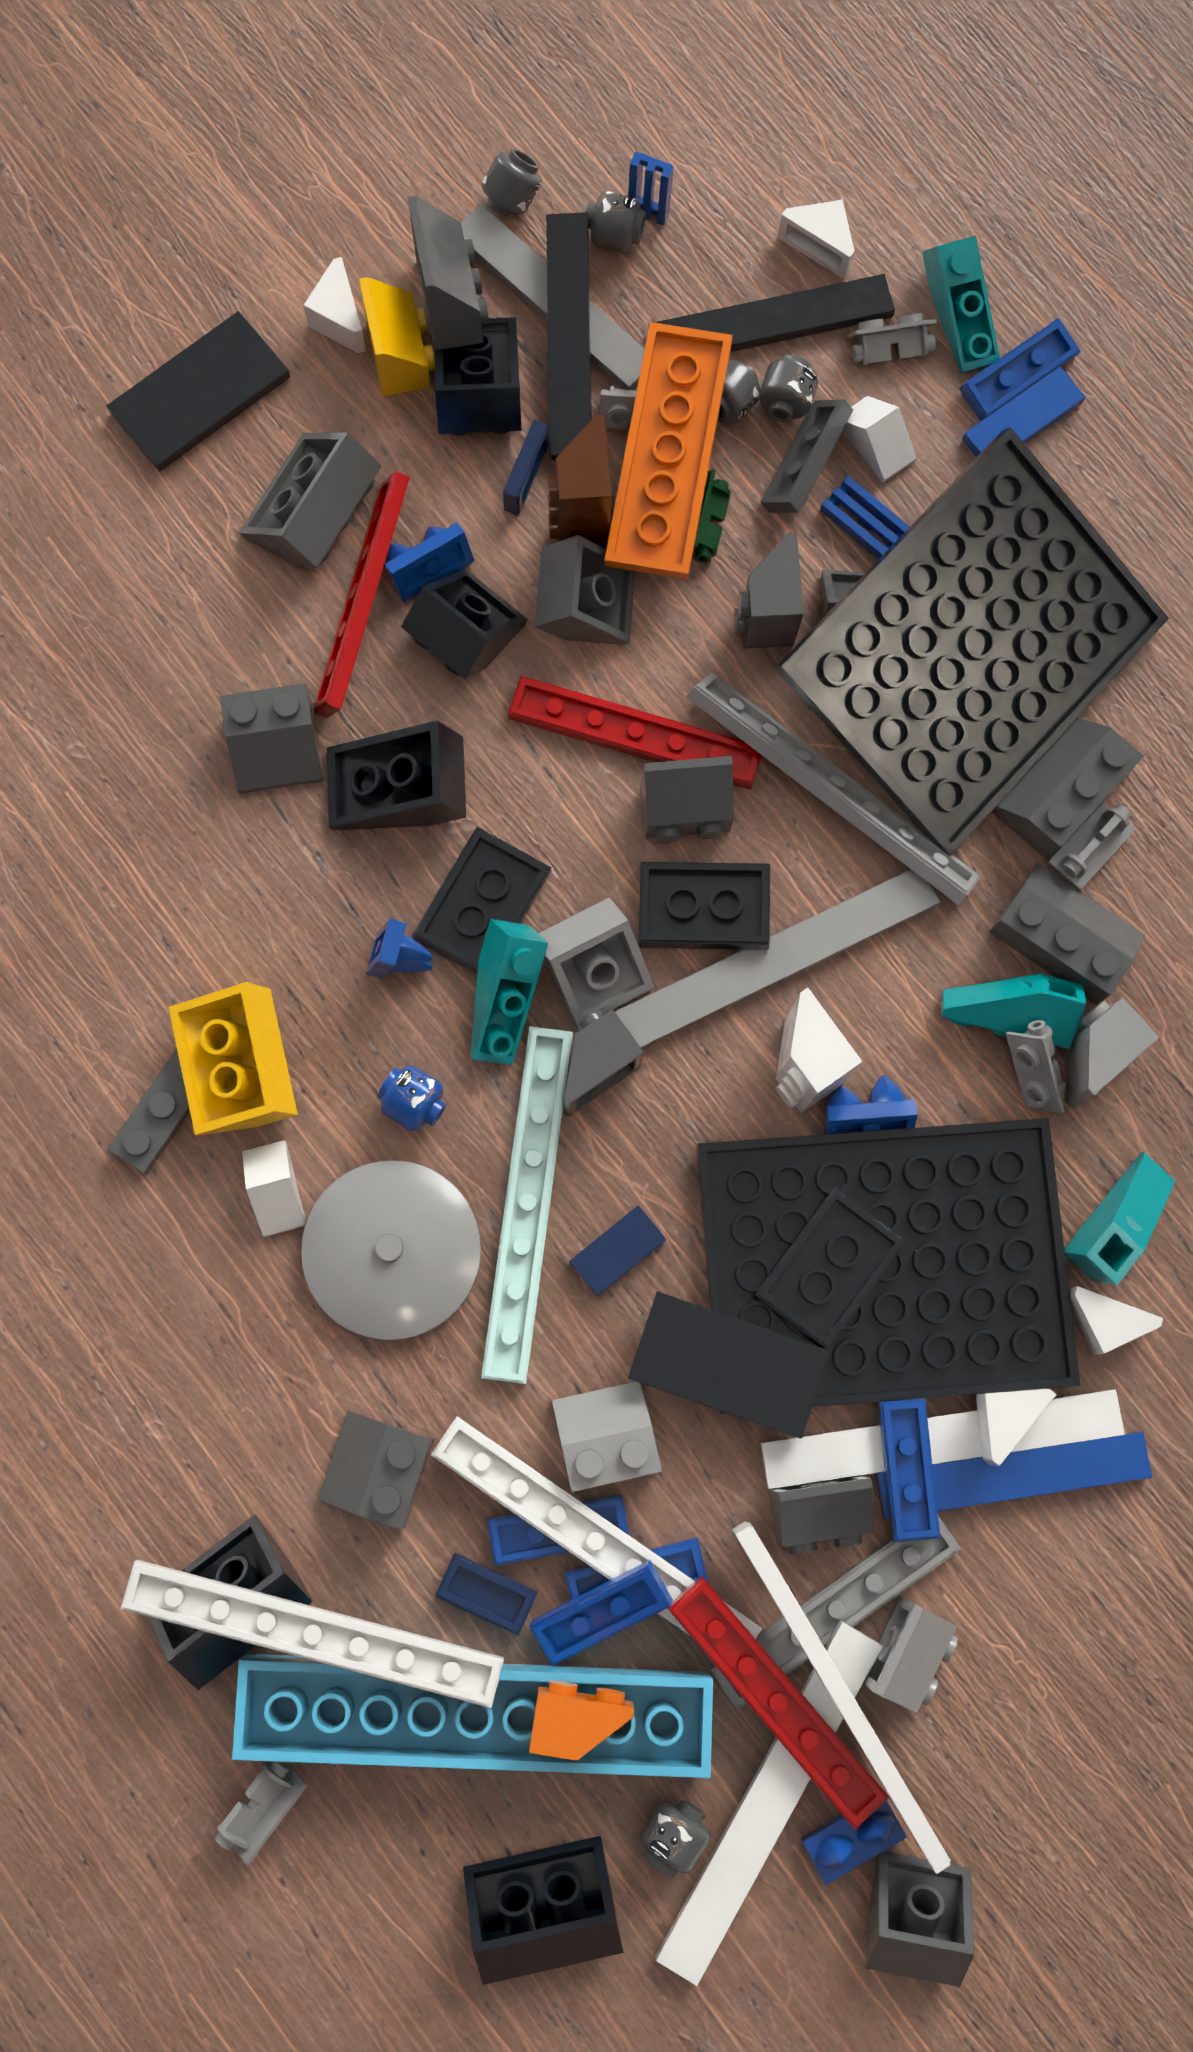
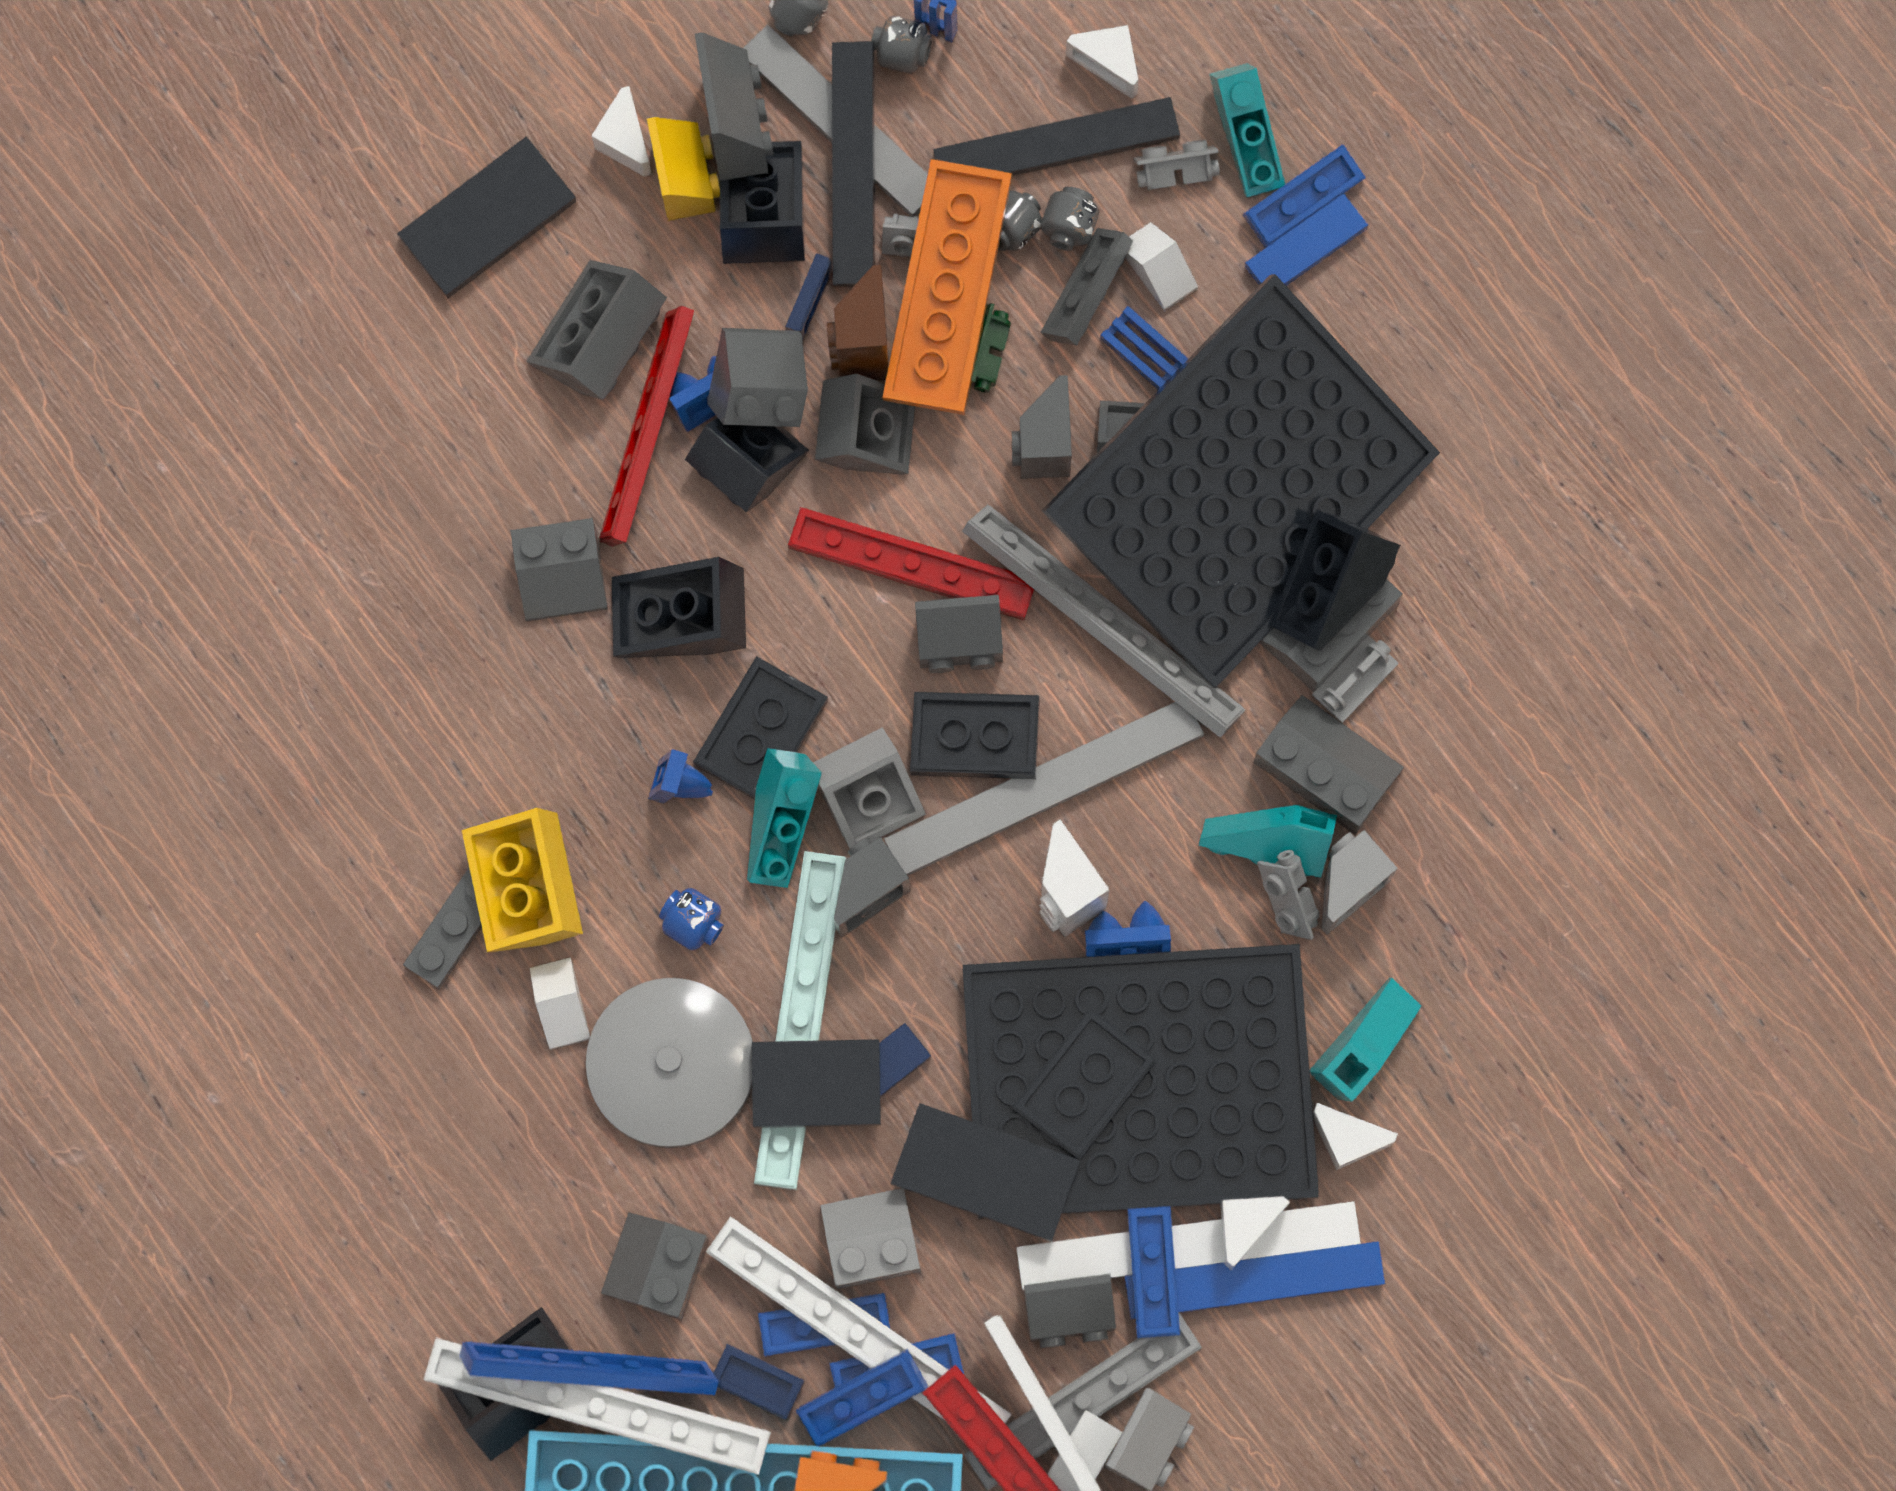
camera: 10 degrees right, 0 degrees up
(299, 1592) = (587, 1368): none -> blue tile
(477, 540) = (759, 378): none -> dark grey slope
(546, 1271) = (816, 1083): none -> black tile
(1074, 739) = (1332, 579): none -> black slope

